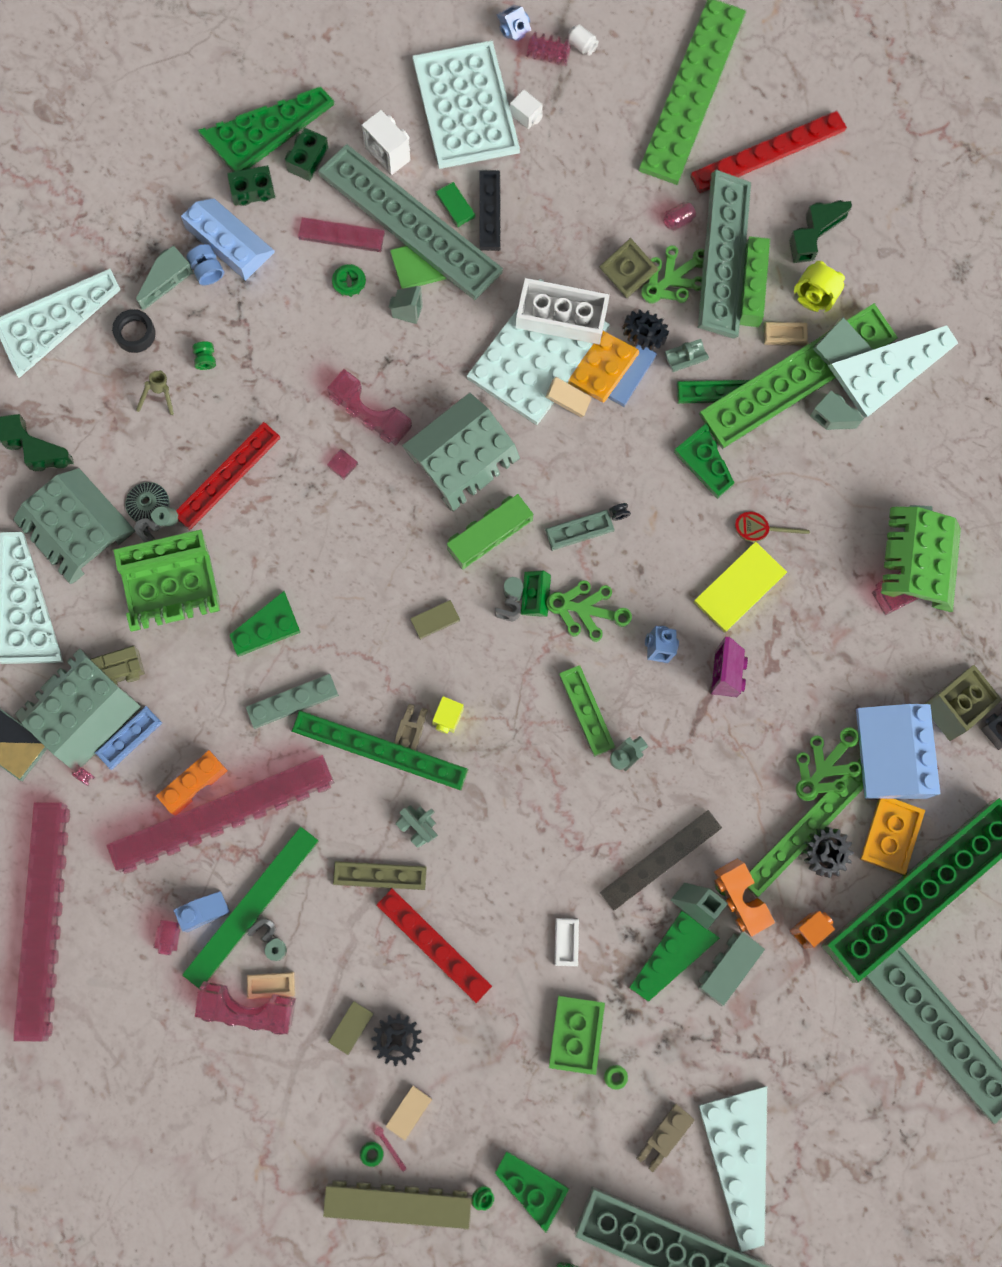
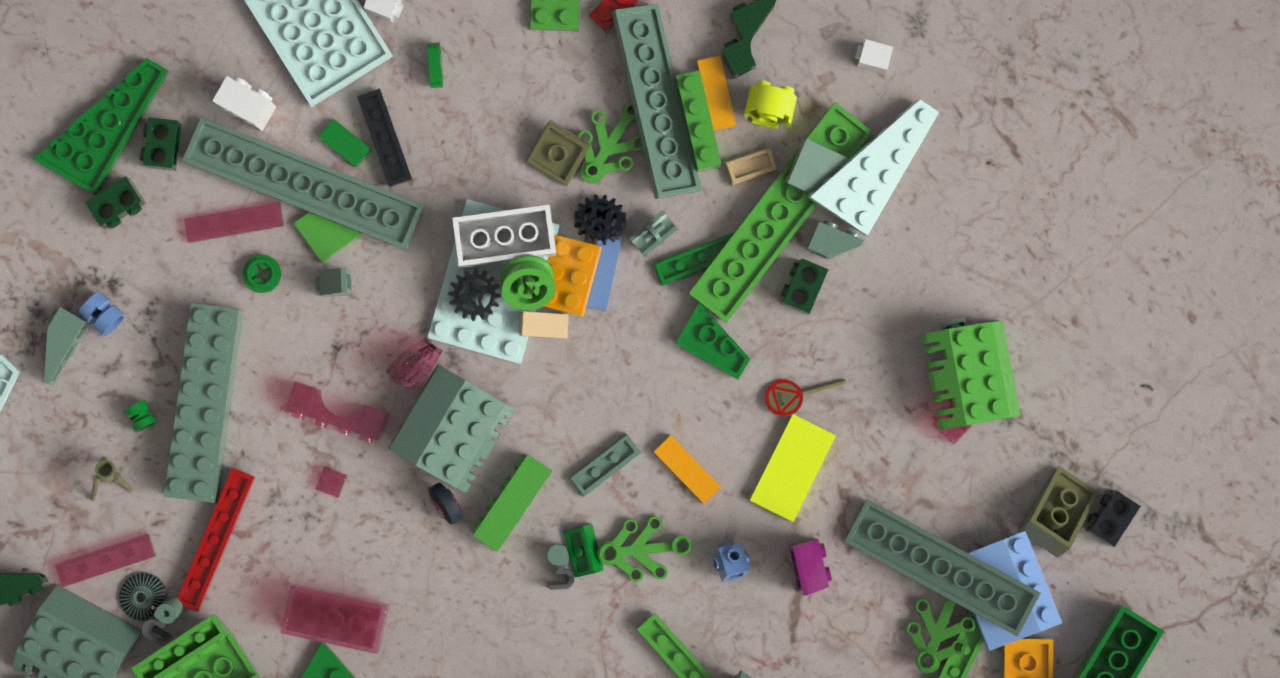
camera: 15 degrees left, 10 degrees up
(128, 462) = (105, 560): none -> clear pink tile
(130, 316) = (37, 406): black tyre -> none
(227, 236) = (112, 270): light blue slope -> none
(260, 362) = (203, 403): none -> sand green brick
(303, 572) = (335, 618): none -> clear pink brick
(432, 510) = (445, 503): none -> black wheel
(435, 619) = (489, 615): olive tile -> none
(447, 388) = (414, 363): none -> clear pink slope
(529, 350) = (464, 299): none -> black gear
(551, 168) = (435, 65): none -> green beam
(558, 359) = (536, 273): none -> bright green wheel
(619, 511) = (640, 432): black bush -> none
(649, 557) = (687, 469): none -> light orange tile
(679, 216) = (592, 72): clear pink brick -> none
(777, 267) = (717, 93): none -> light orange tile
(802, 443) = (808, 288): none -> dark green brick
(848, 711) = (943, 567): none -> sand green plate
(917, 280) = (874, 56): none -> white brick

